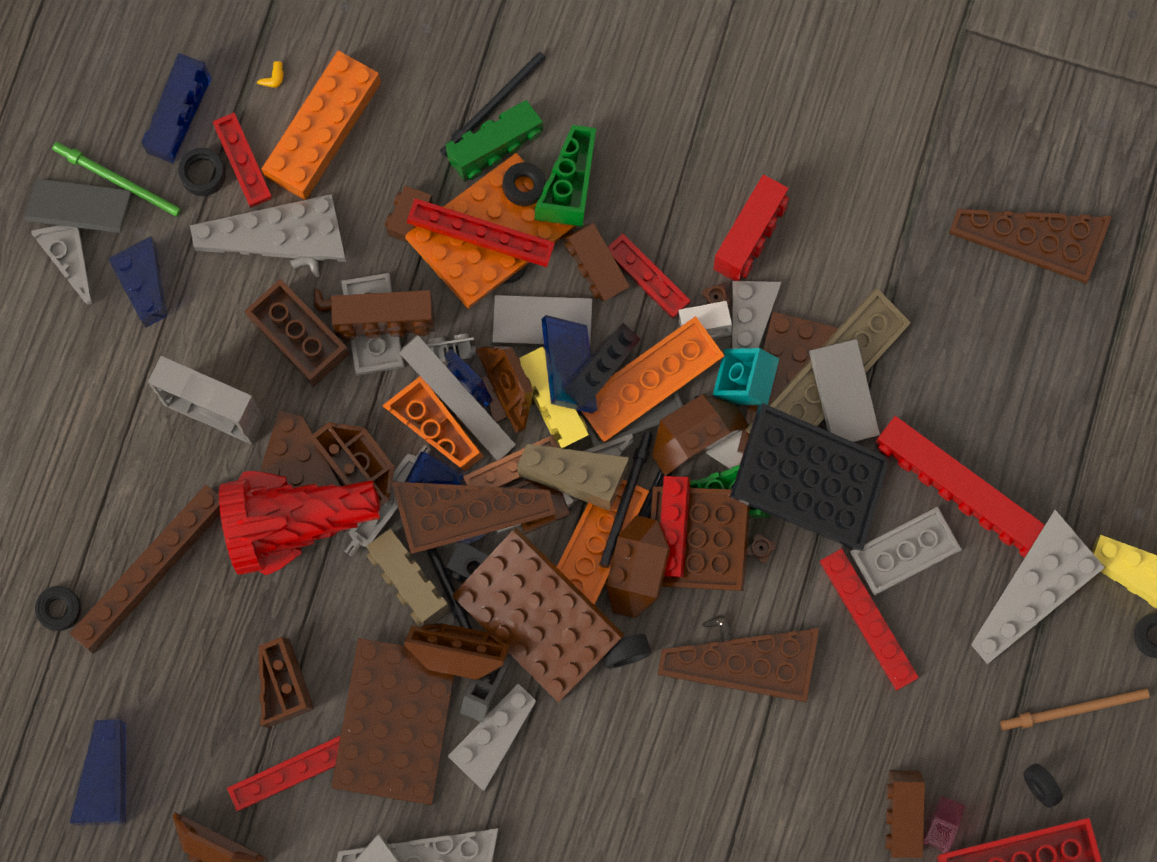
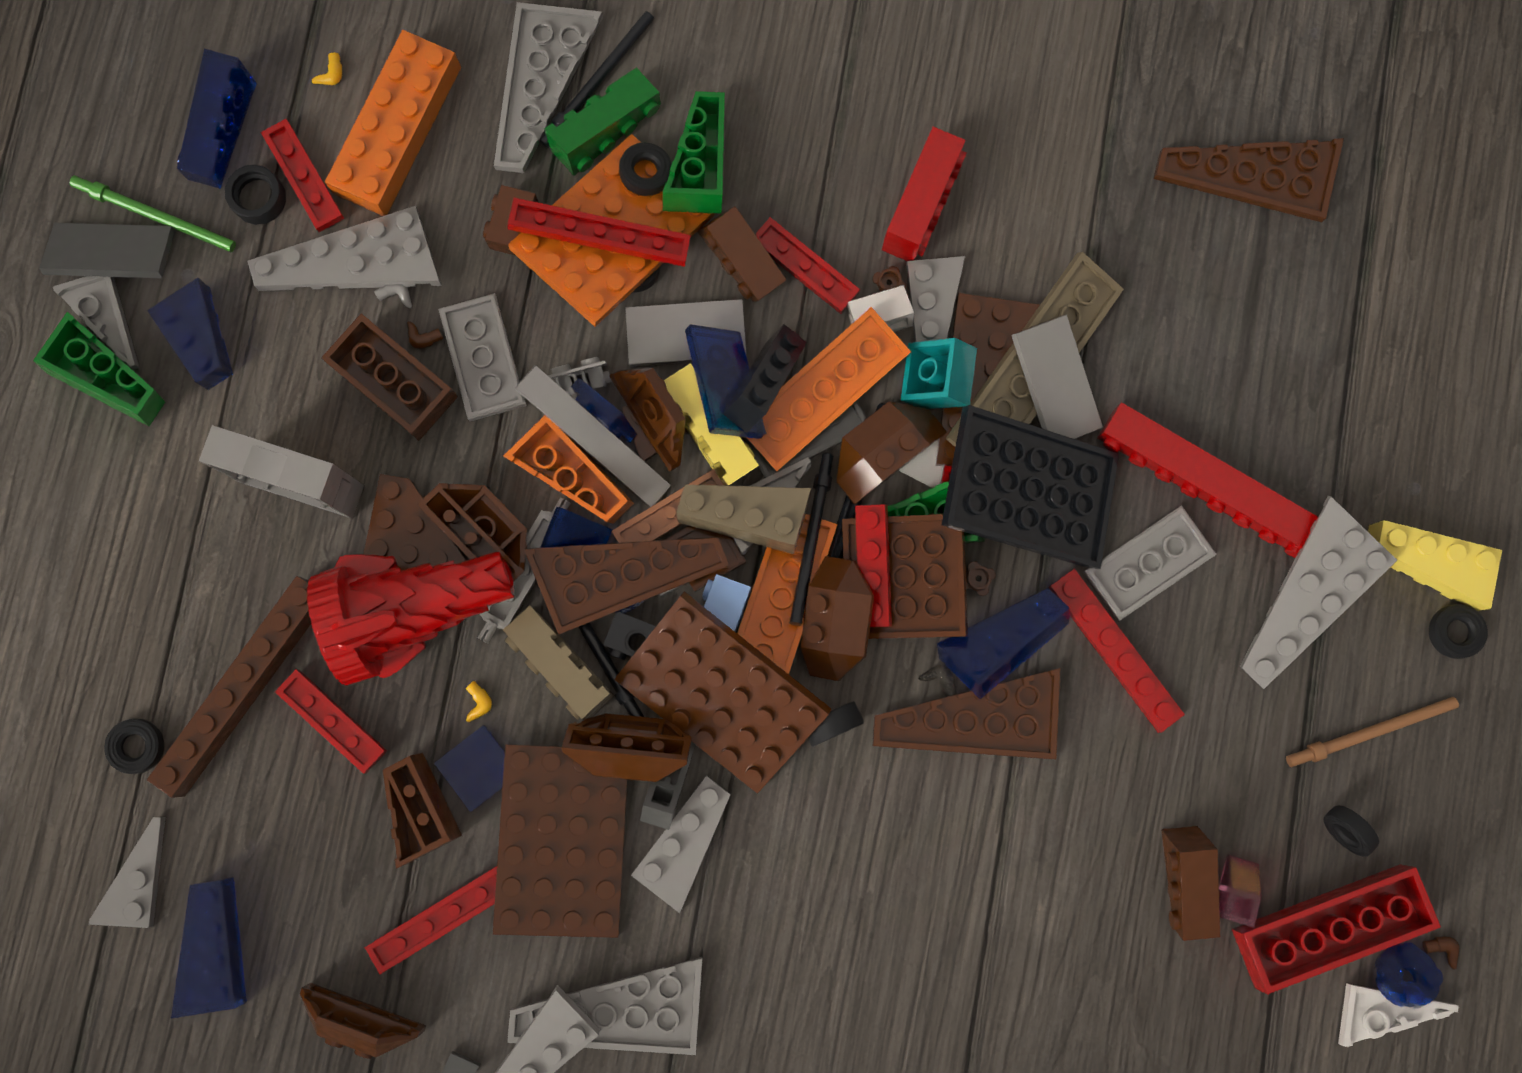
camera: 15 degrees left, 5 degrees up
(45, 724) = (134, 890): none -> light grey wing
(59, 302) = (91, 367): none -> green wedge
(218, 605) = (331, 721): none -> red plate
(330, 656) = (474, 768): none -> clear blue plate
(342, 601) = (482, 699): none -> yellow animal
(383, 314) = (491, 344): reddish brown brick -> none
(448, 87) = (541, 64): none -> light grey wing
(551, 539) = (726, 600): none -> light blue brick
(774, 600) = (1004, 641): none -> clear blue wedge

